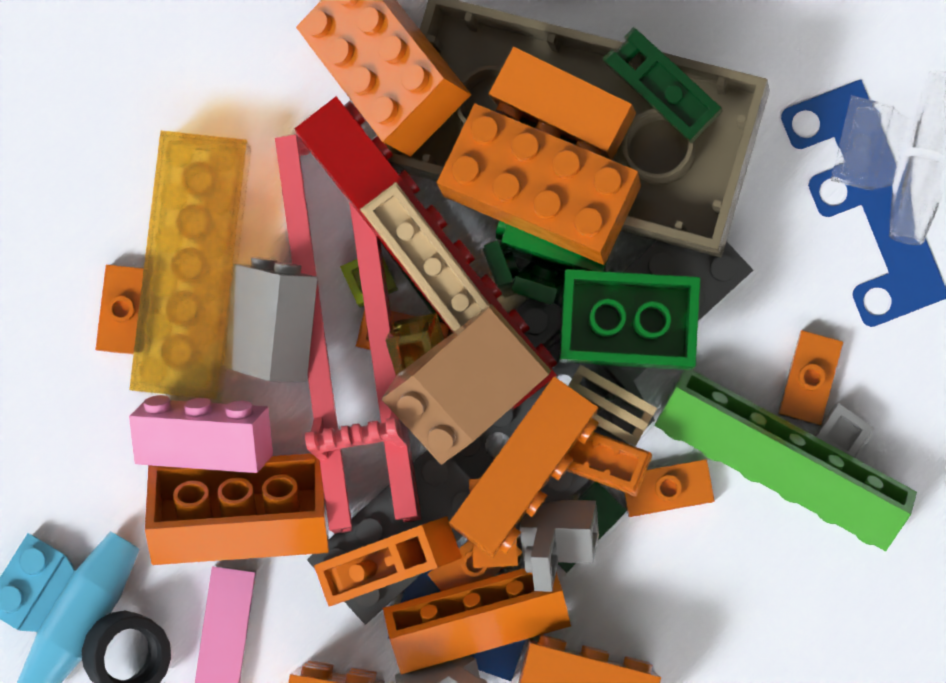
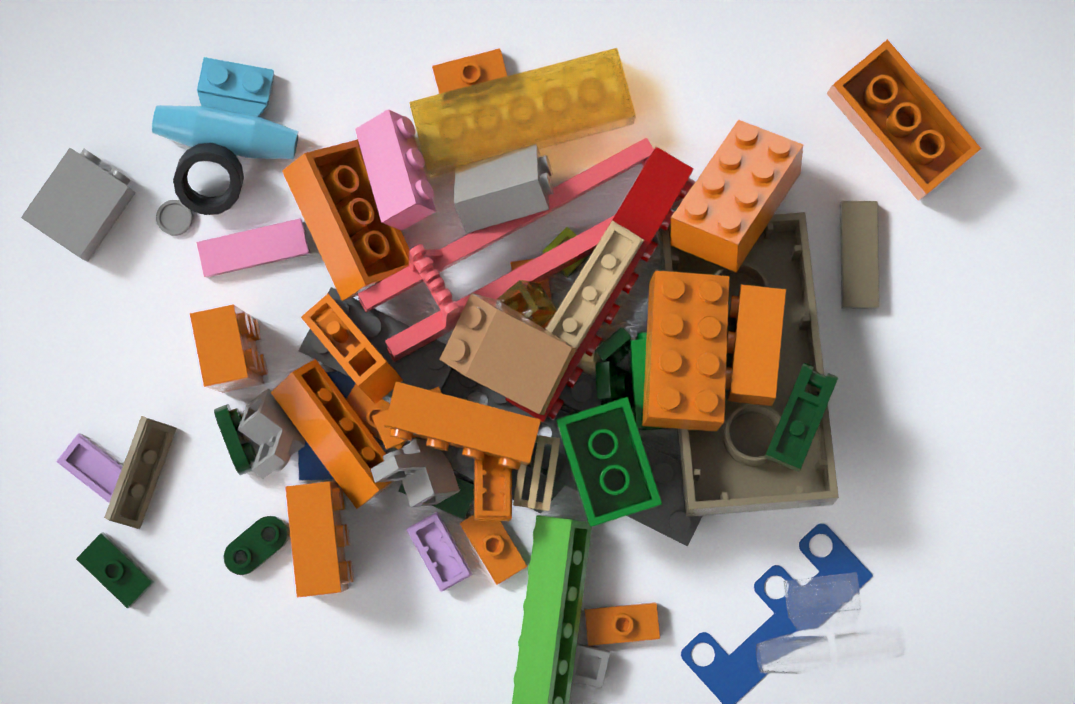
camera: 70 degrees right, 0 degrees up
(652, 552) = (439, 551): none -> lavender plate

